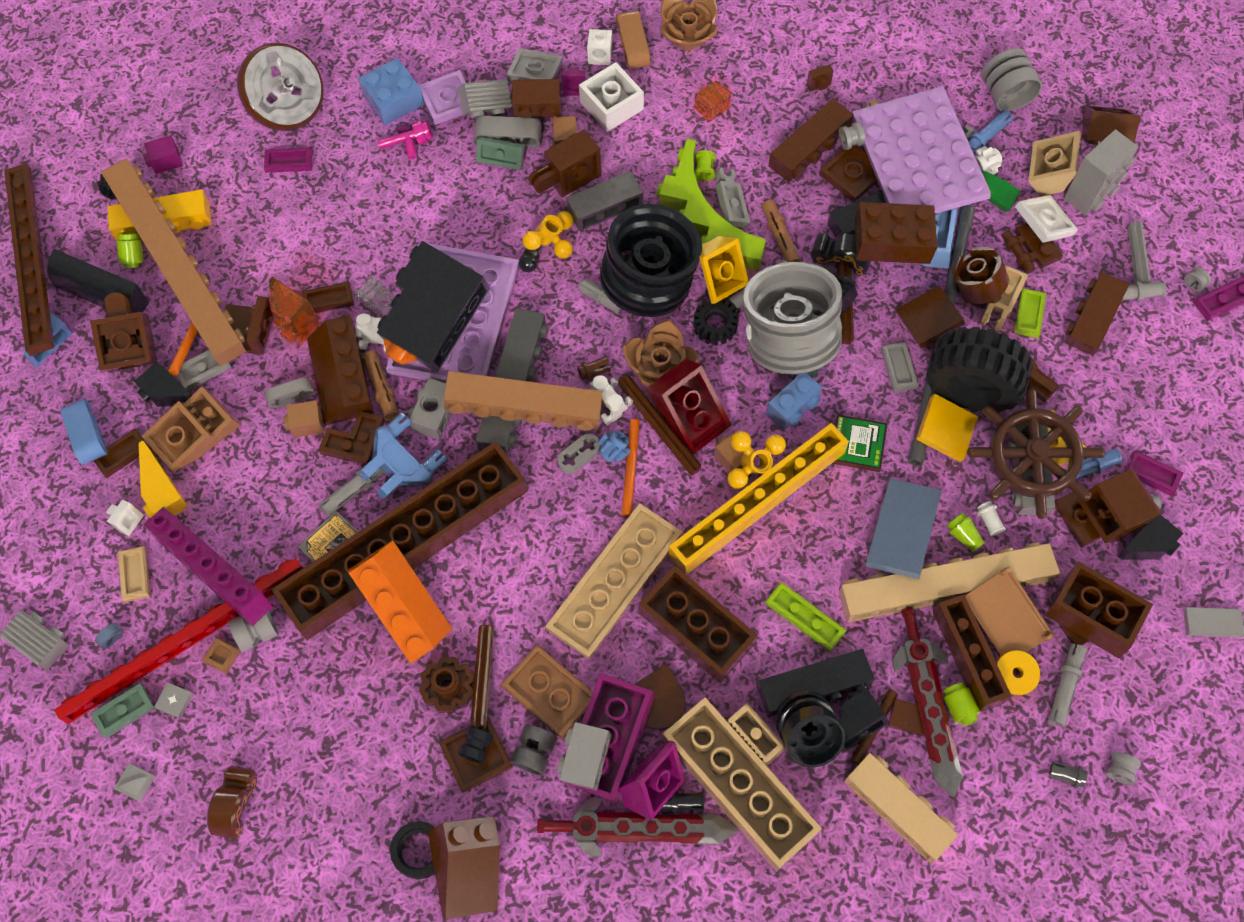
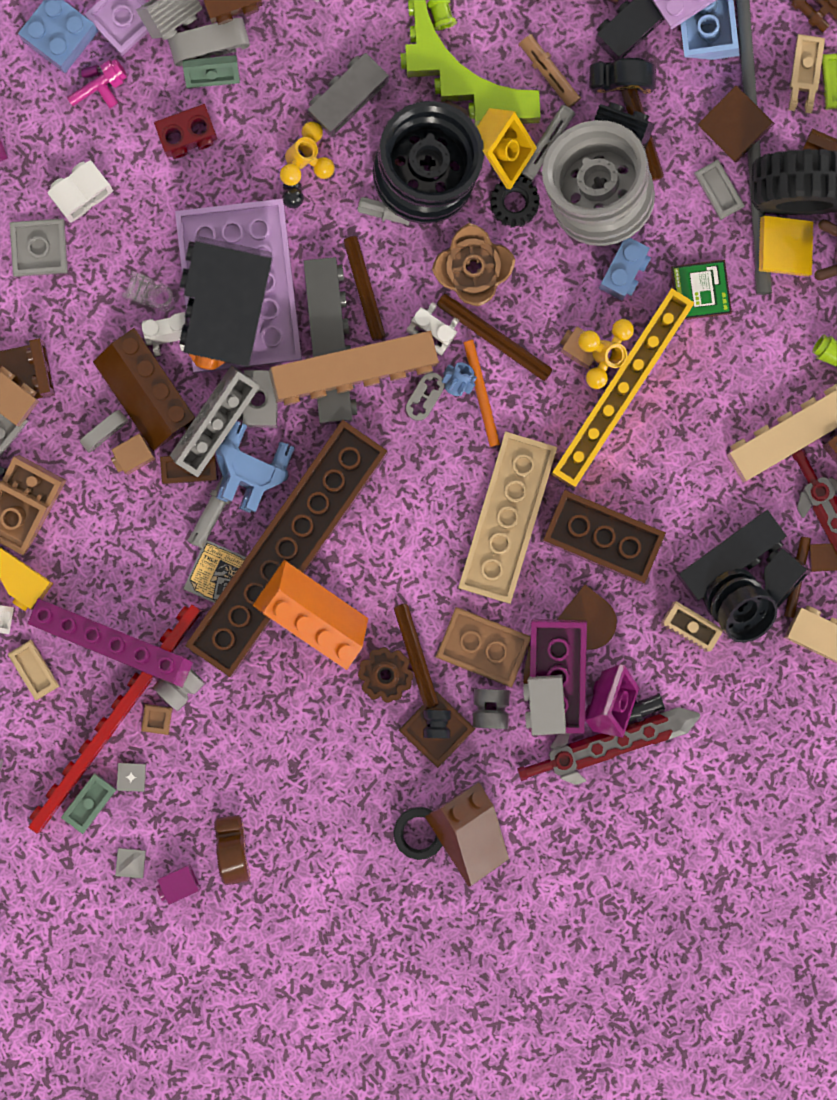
camera: 20 degrees left, 20 degrees up
(109, 635) = (41, 738): sand blue tile -> none
(167, 818) = (178, 885): none -> magenta brick
(291, 313) = (70, 346): clear orange slope -> none
(304, 239) = (38, 247): none -> light grey tile
(329, 297) = (94, 308): reddish brown tile -> none
(355, 206) = (79, 190): none -> white brick
(382, 405) = (214, 421): none -> light grey brick
(383, 393) = (186, 381): medium nougat pin -> none
(461, 184) = (183, 124): none -> dark red brick
(560, 346) = (364, 288): none -> reddish brown axle
(563, 128) = (274, 23): medium nougat brick -> none
(568, 165) = (295, 67): reddish brown brick -> none
(593, 368) = (406, 297): reddish brown pin -> none
(690, 404) = (521, 310): dark red slope -> none
(731, 199) = (484, 47): light grey plate -> none
(741, 784) = (692, 675): tan brick -> none
(805, 617) = (702, 491): lime tile -> none
(895, 232) = (676, 48): reddish brown brick -> none
(904, 528) = (772, 371): sand blue tile -> none
(981, 276) = (776, 61): reddish brown brick -> none

